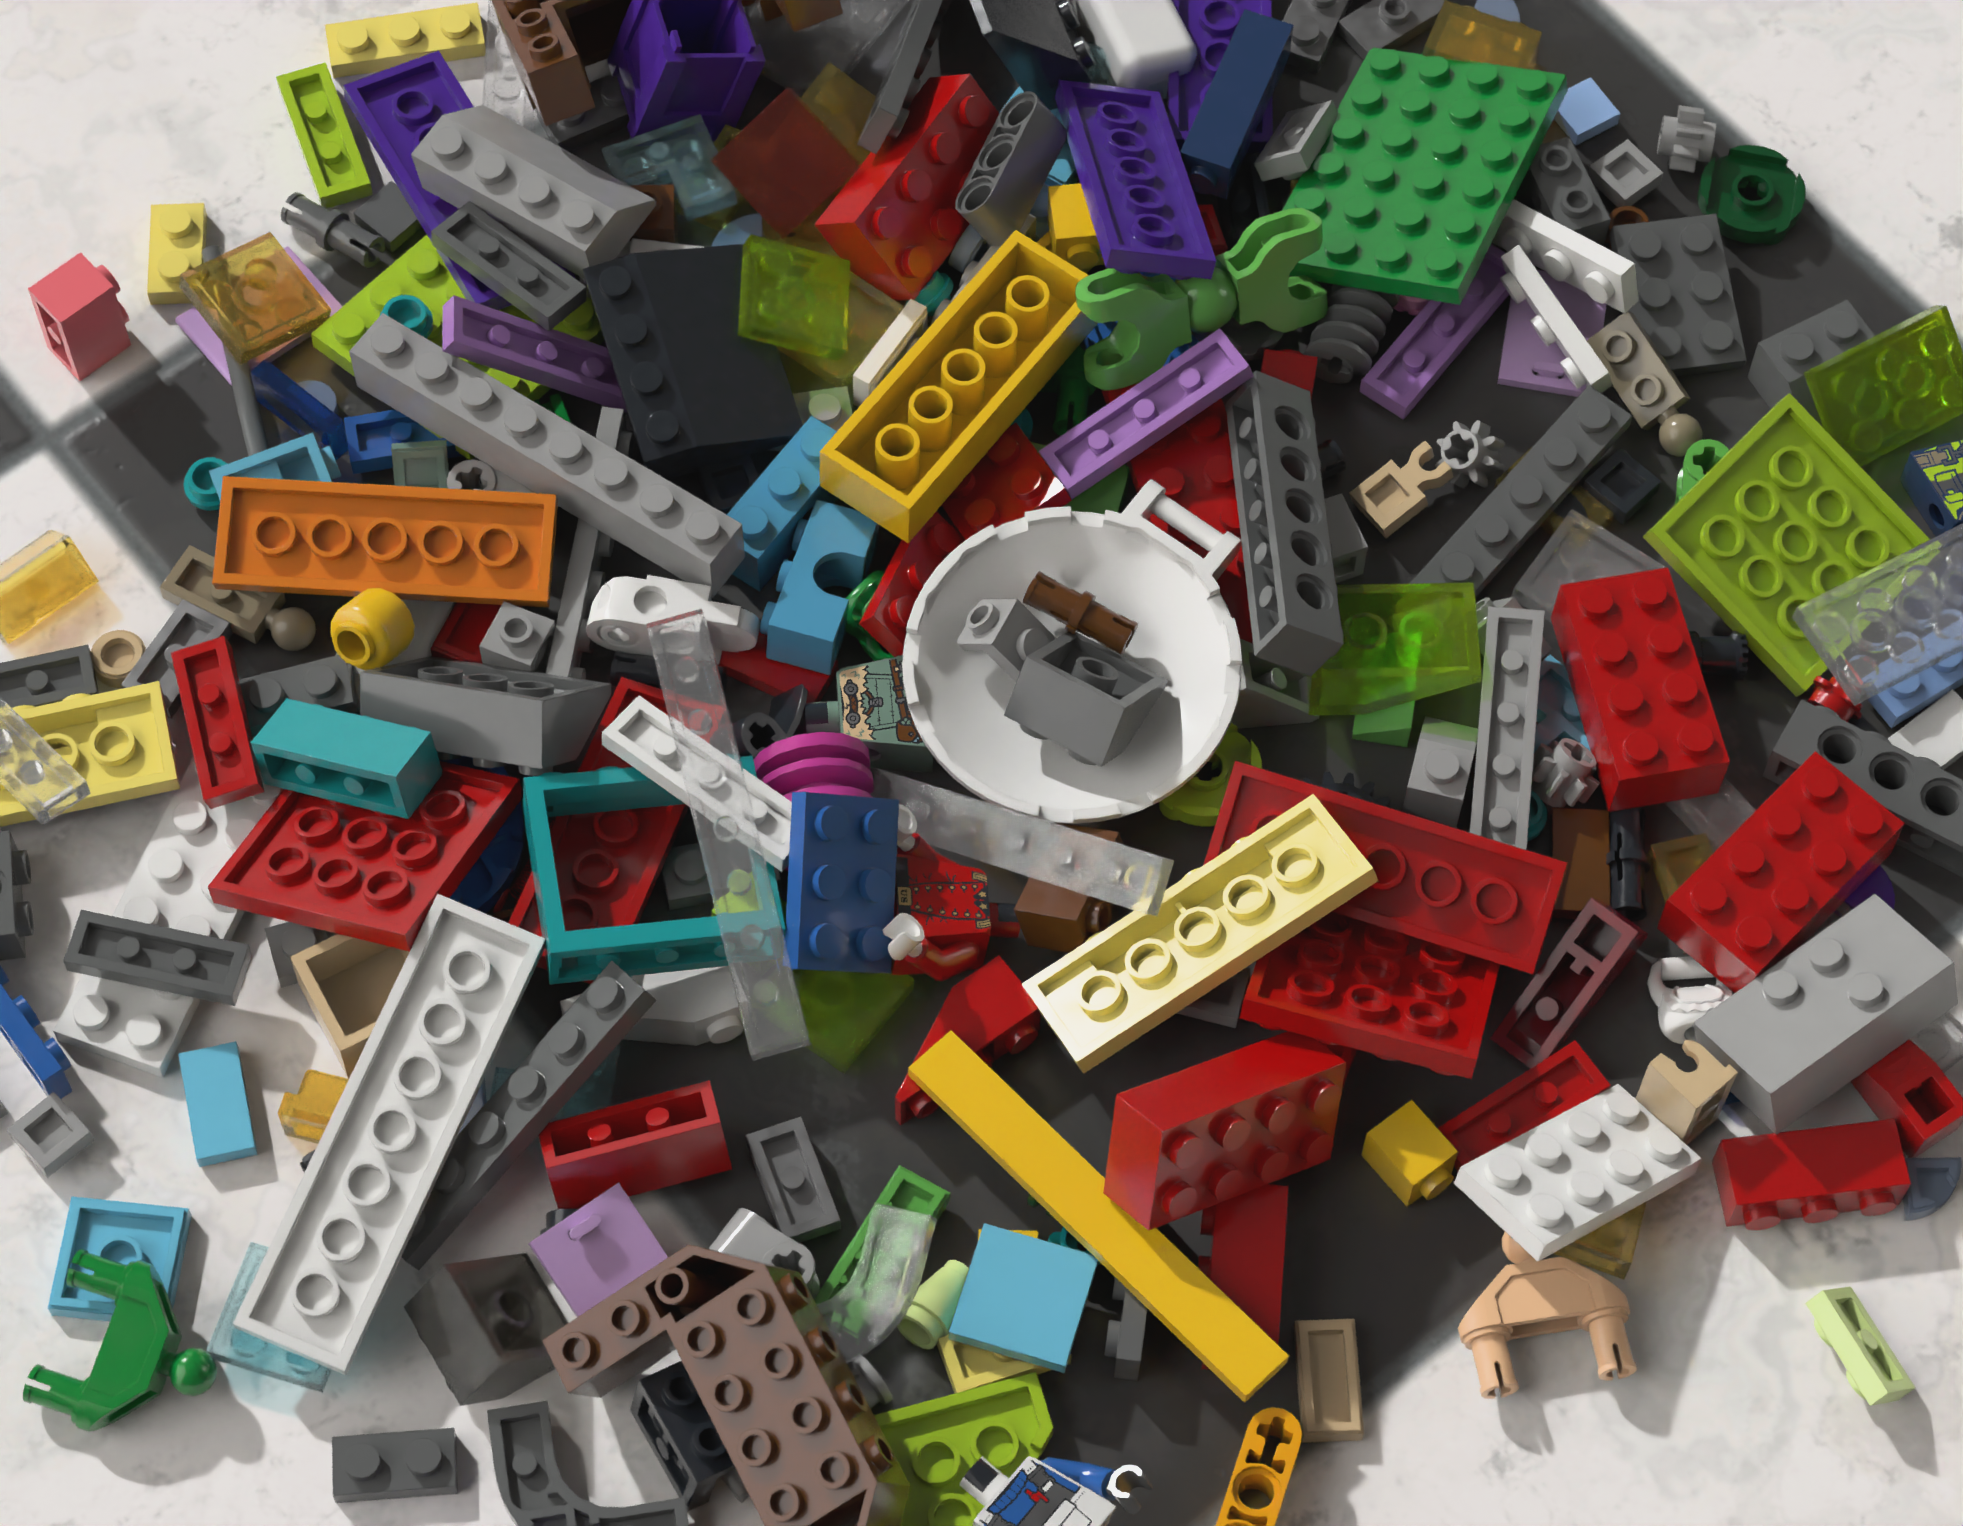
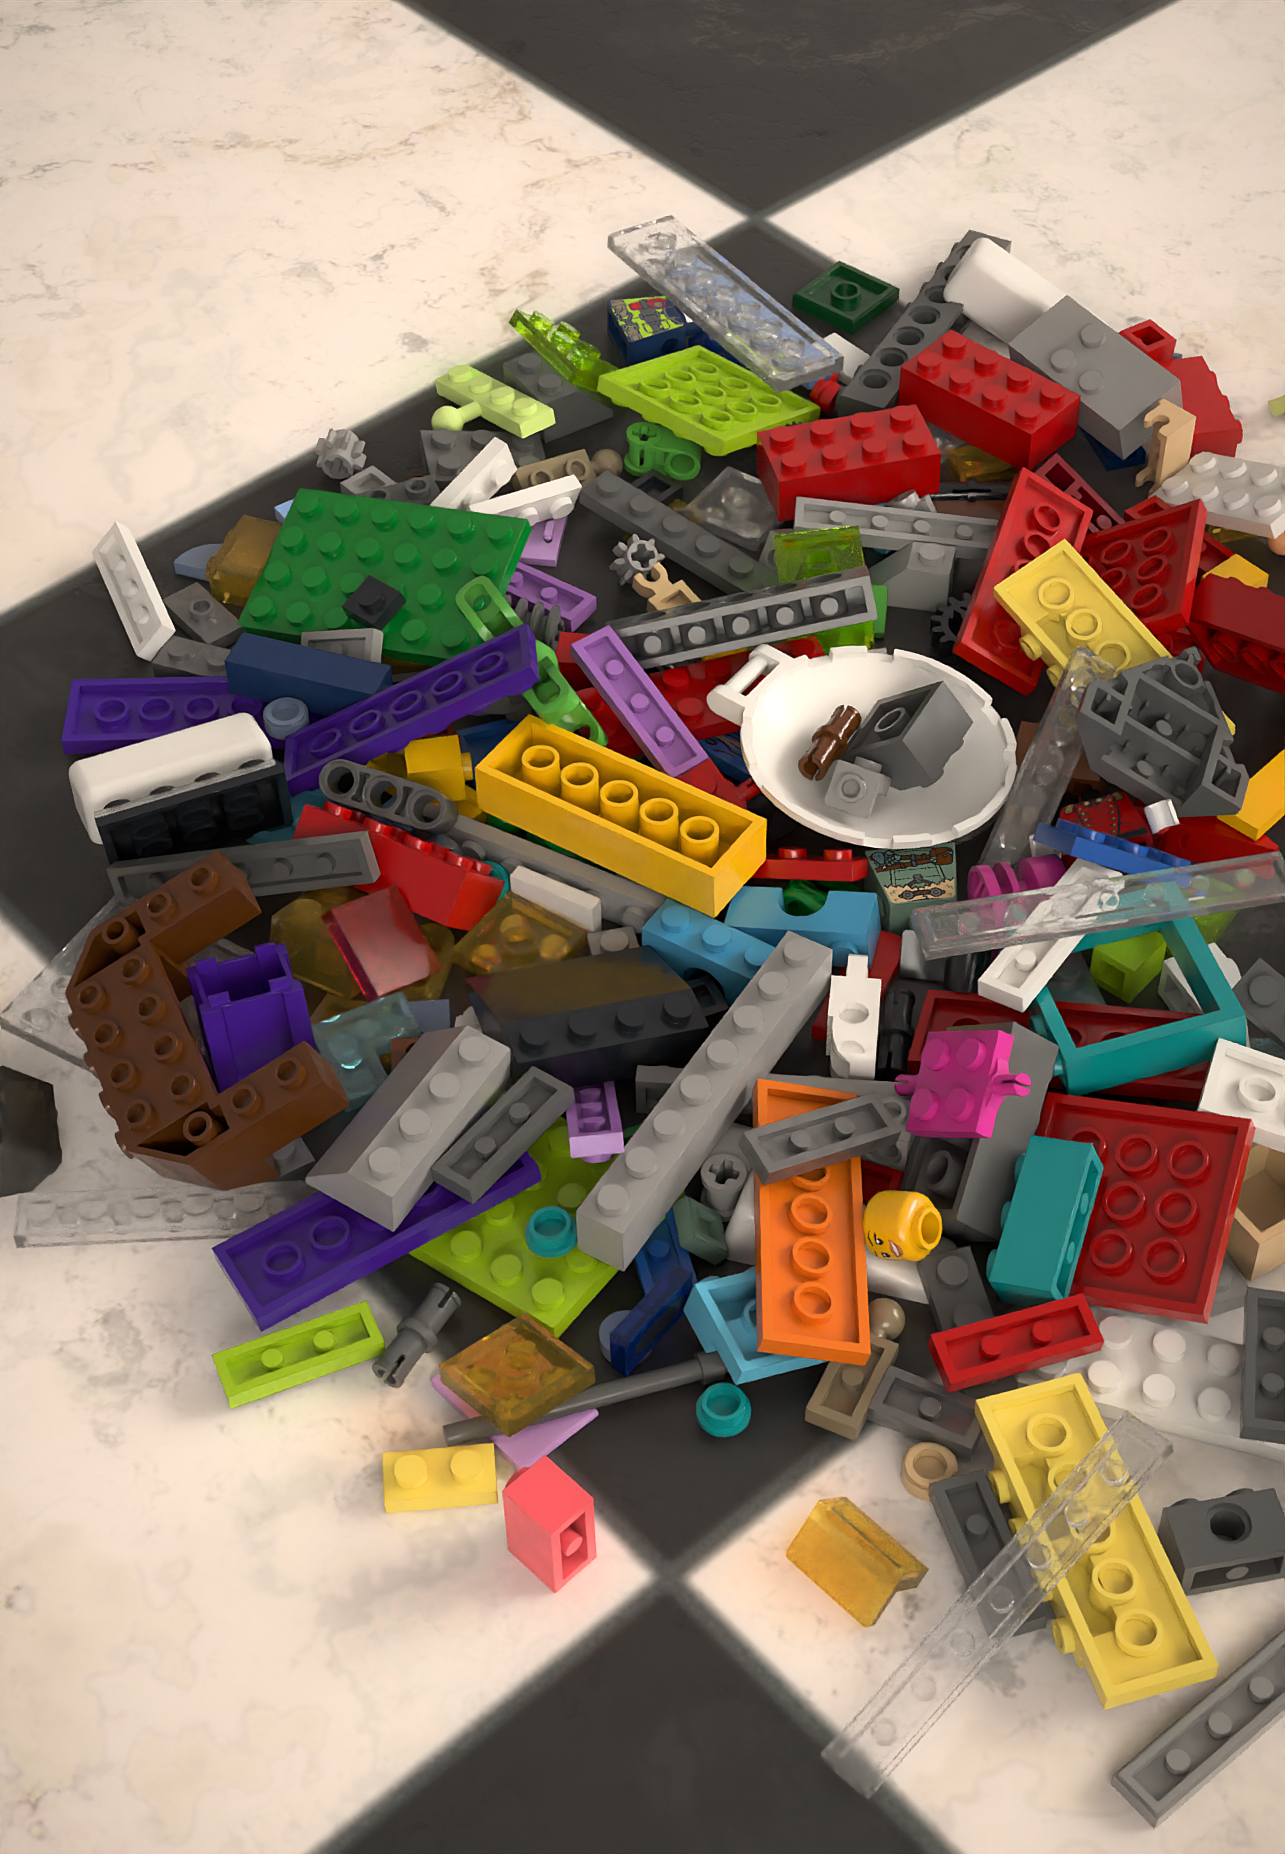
camera: 90 degrees left, 15 degrees down
(388, 216) = (394, 1292): dark grey tile -> none
(398, 38) = (174, 1304): light yellow plate -> none
(461, 541) = (819, 1138): none -> flat silver plate
(497, 664) = (961, 1084): none -> dark pink plate
(794, 298) = (516, 945): clear neon green plate -> none
(1043, 957) = (1163, 737): none -> dark grey wedge
(1185, 89) = (285, 717): none -> sand blue tile
(1347, 154) = (373, 604): none -> black plate
(1683, 1006) = (1084, 457): white piece -> none
(1748, 220) = (386, 443): dark green plate -> none
(1787, 299) = (489, 399): none -> yellowish green plate

